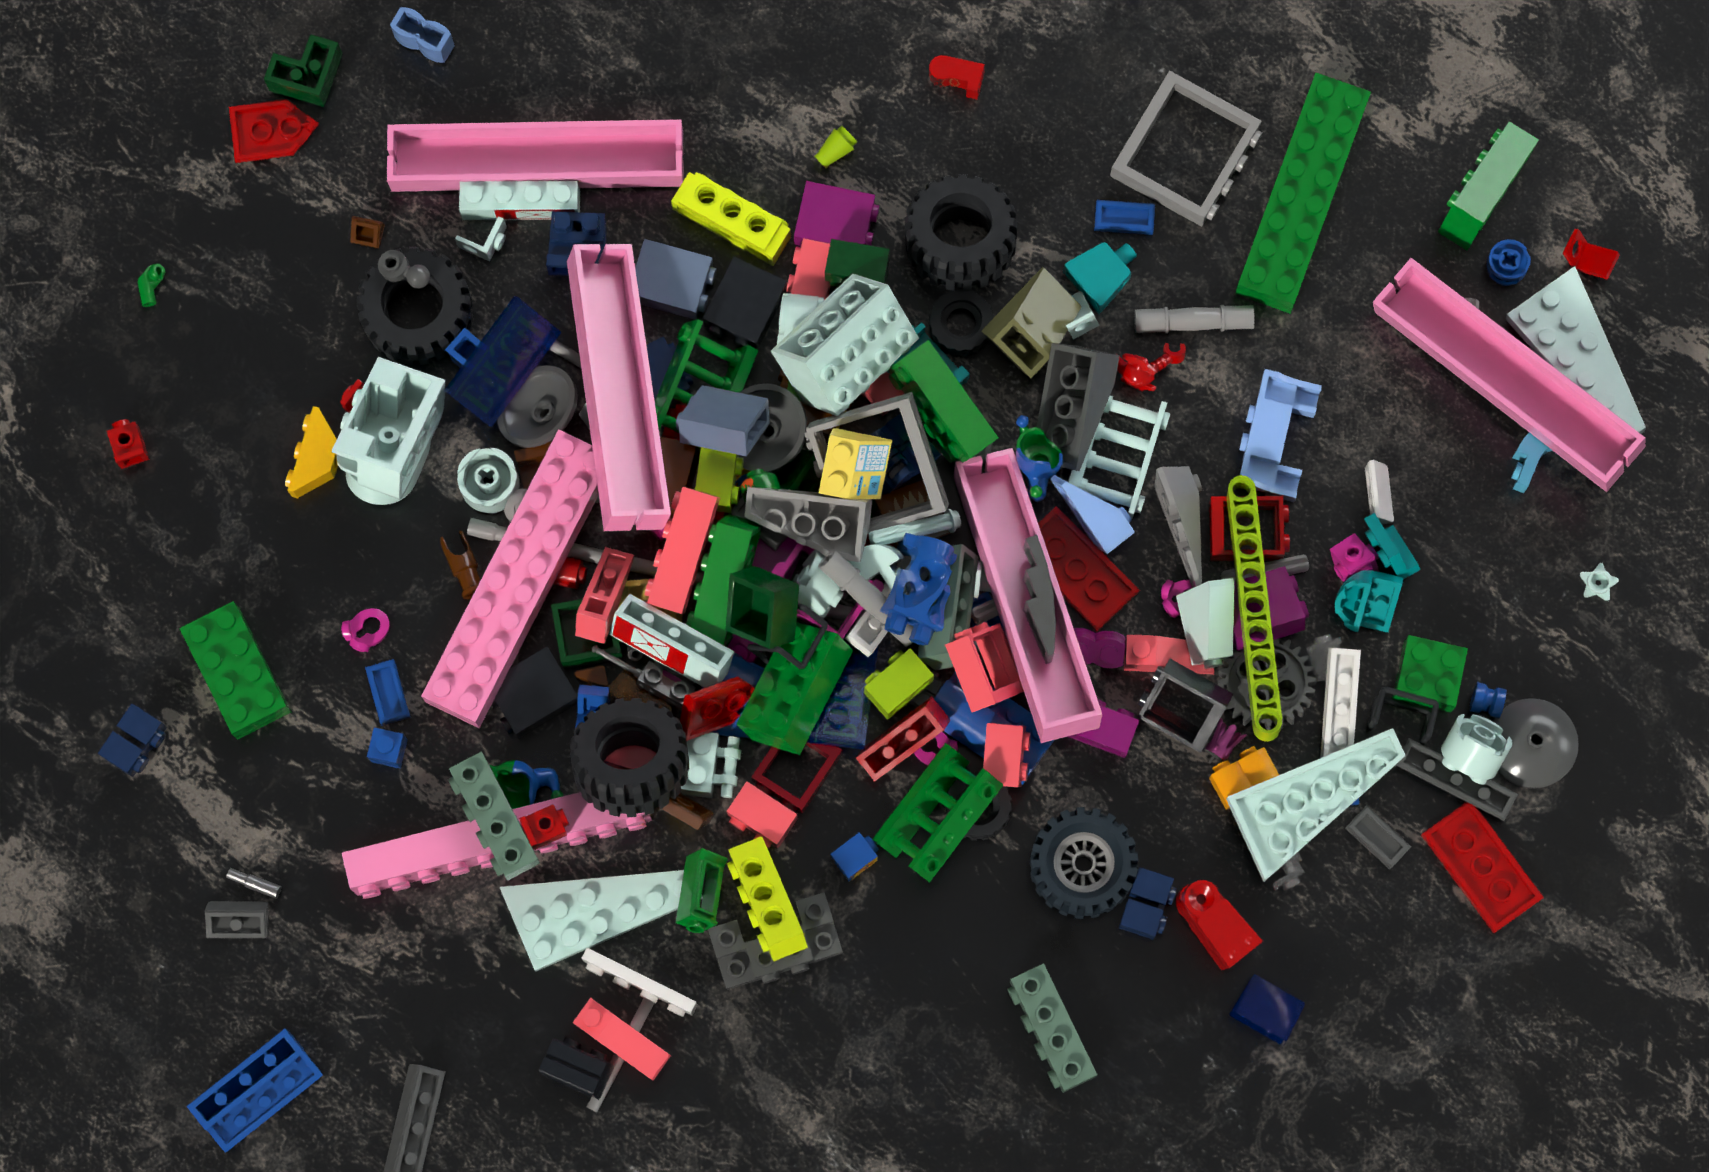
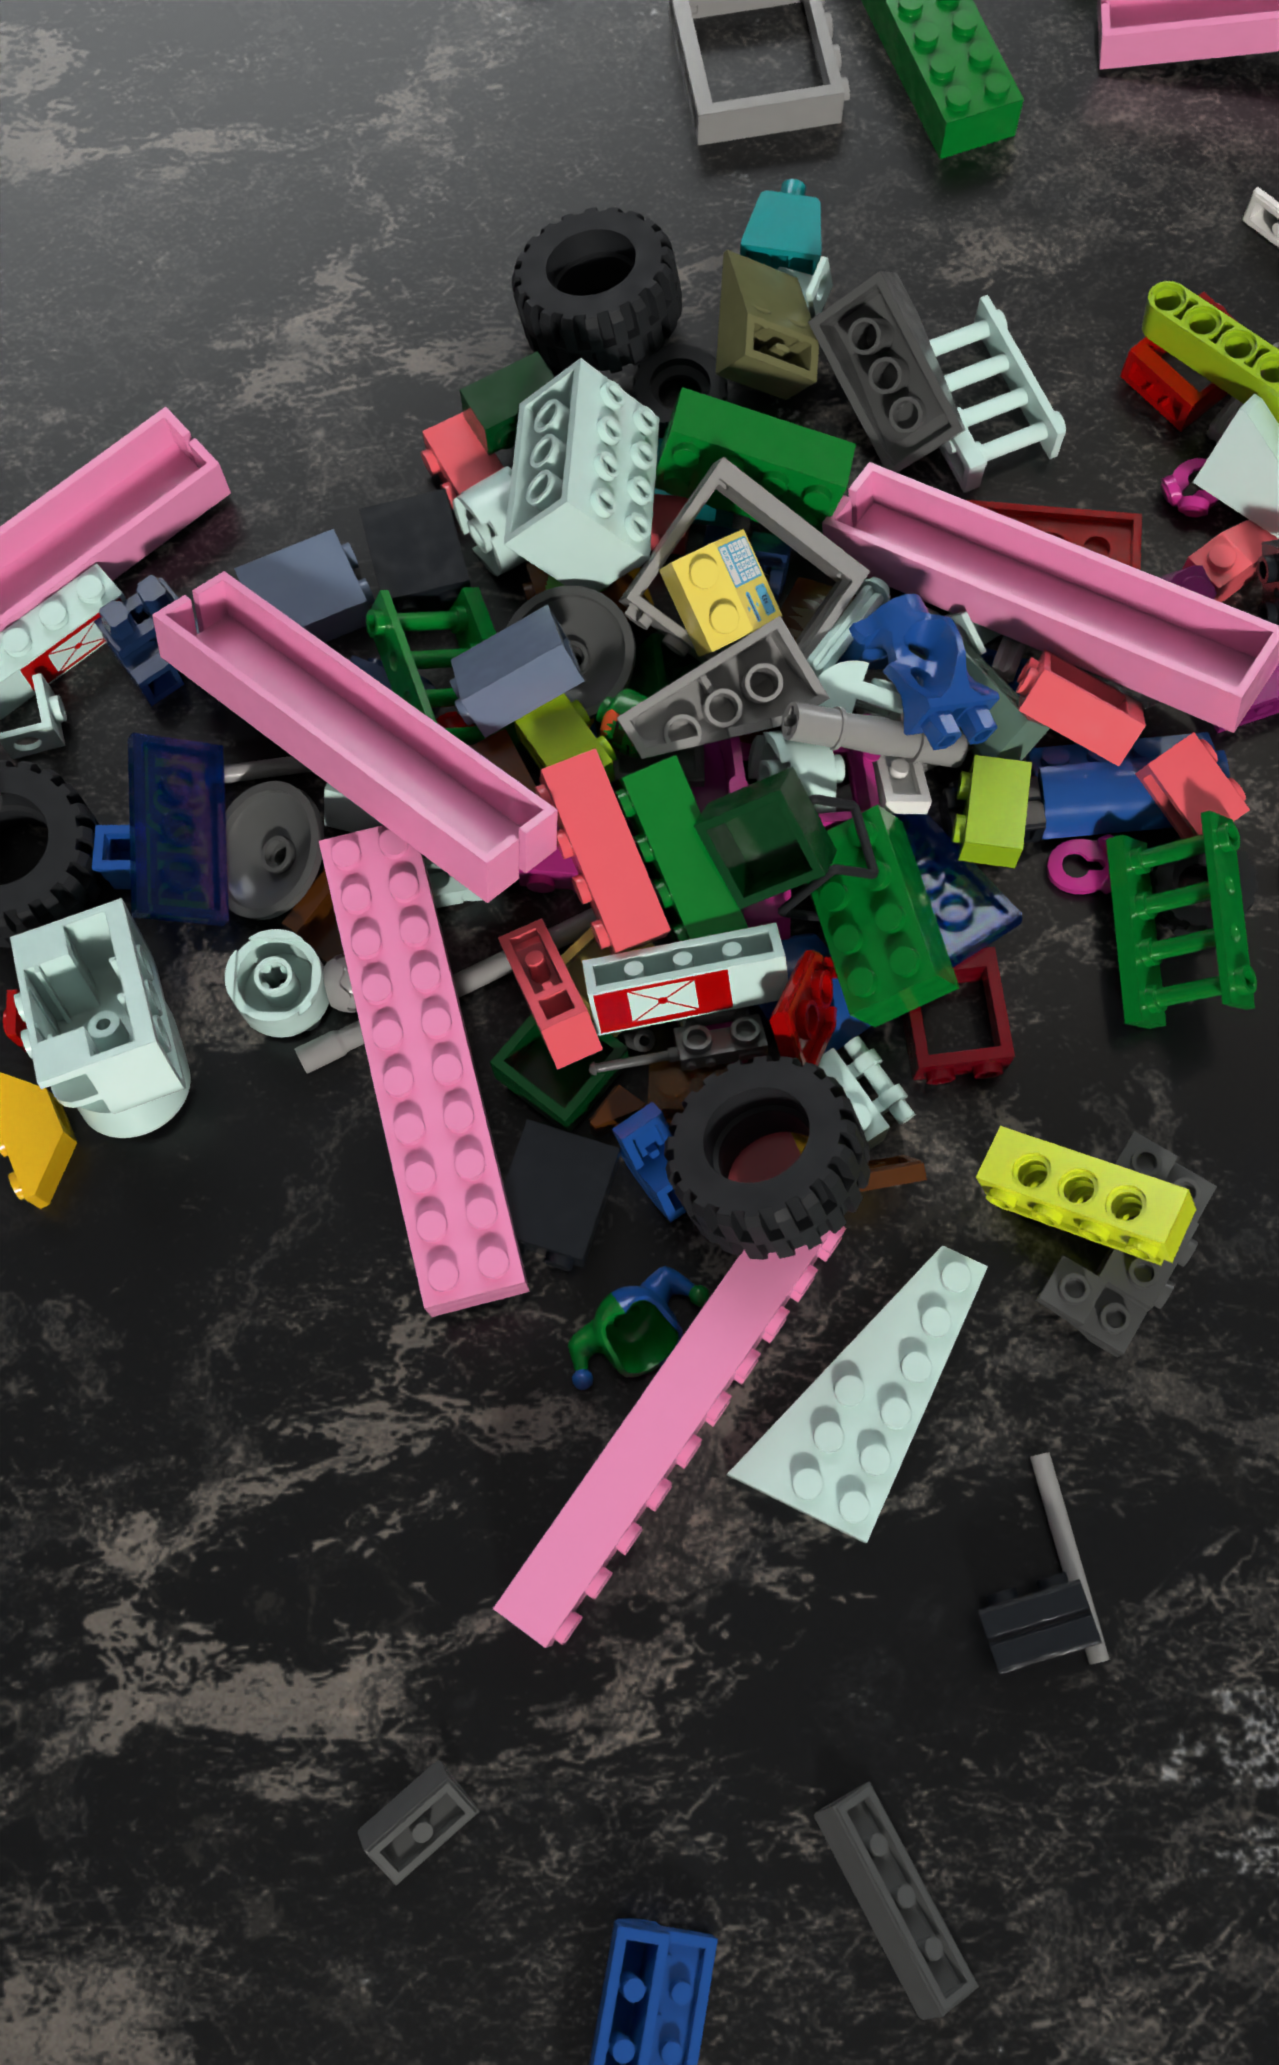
camera: 40 degrees left, 5 degrees down
(140, 727) = (79, 1728): dark blue piece -> none
(235, 670) = (140, 1488): green brick -> none
(255, 883) = (400, 1750): flat silver pin -> none
(363, 644) = (253, 1306): dark pink piece -> none
(387, 692) = (368, 1348): blue tile -> none
(387, 748) = (429, 1418): blue brick -> none
(463, 567) = (336, 1114): reddish brown piece -> none
(494, 817) = (659, 1382): sand green brick -> none
(540, 837) = (736, 1357): red brick -> none
(571, 574) = (479, 1013): red brick -> none
(621, 1039) = (1063, 1534): coral slope -> none
(650, 989) = (1034, 1437): white plate -> none
(689, 911) = (987, 1258): green window -> none
(761, 815) = (967, 1106): coral brick -> none
(764, 244) = (316, 480): neon yellow brick -> none
(835, 214) = (426, 385): magenta brick -> none
(836, 146) = (371, 322): lime cone -> none
(855, 856) = (1121, 1062): blue brick -> none
(903, 738) = (1058, 871): red brick -> none
(957, 73) = (441, 158): red leg -> none
(1036, 458) = (905, 450): piece -> none
(1040, 608) = (1088, 584): dark grey slope -> none
(1102, 522) = (1025, 463): light blue slope -> none
(1124, 217) = (753, 168): blue tile -> none
(1140, 373) = (926, 282): red piece -> none
(1180, 502) = (1115, 399): light grey wedge -> none
(1194, 319) = (925, 206): light grey piece -> none
(1269, 422) = (1116, 240): light blue bracket -> none

